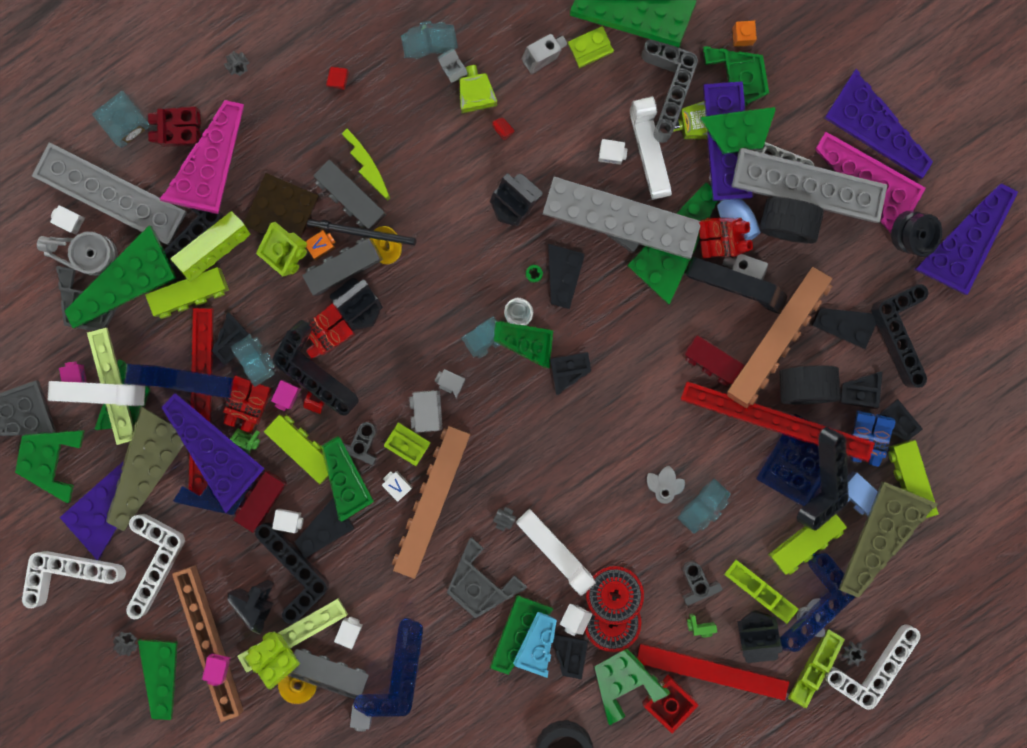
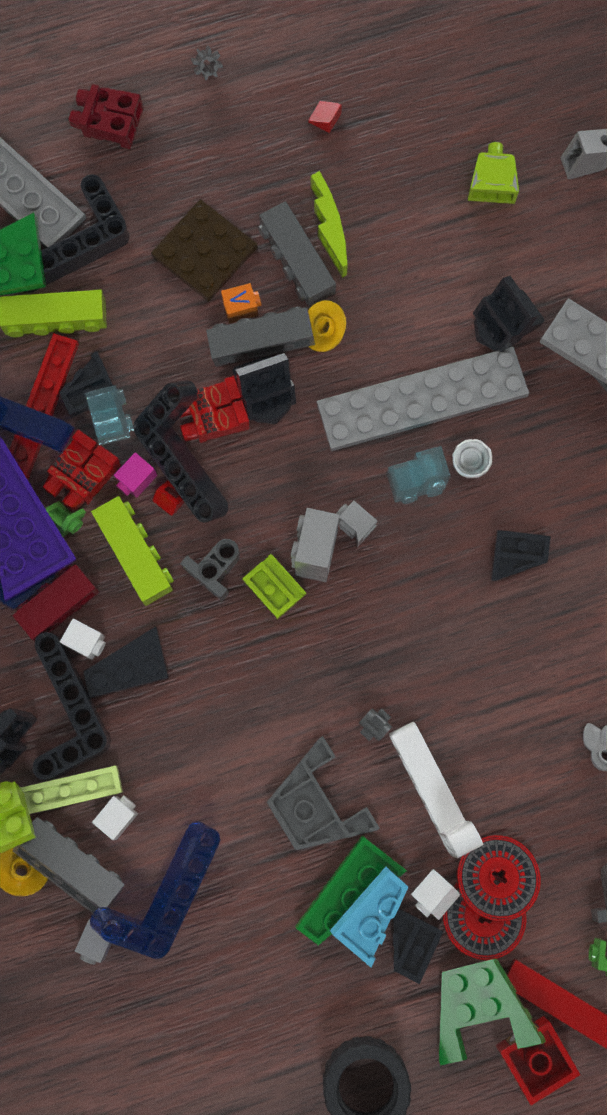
camera: 15 degrees right, 10 degrees down
(121, 119) = (44, 87): clear light blue brick -> none
(206, 168) = (130, 166): dark pink wing -> none
(210, 246) = (101, 262): lime brick -> none
(282, 250) = (190, 292): lime plate -> none
(328, 226) = (259, 285): black bar -> none
(346, 483) = (178, 615): green wing -> none
(396, 485) = (243, 636): white brick -> none
(428, 39) = (453, 95): clear light blue brick -> none
(432, 501) = (283, 672): nougat brick -> none
(452, 65) = (472, 137): light grey bracket -> none
(471, 276) = (422, 398): none -> light grey plate
(503, 128) = (514, 230): red slope -> none
(526, 341) = (474, 493): green wing -> none
(539, 271) = (513, 418): green bush -> none
(564, 274) = (543, 431): black wing -> none

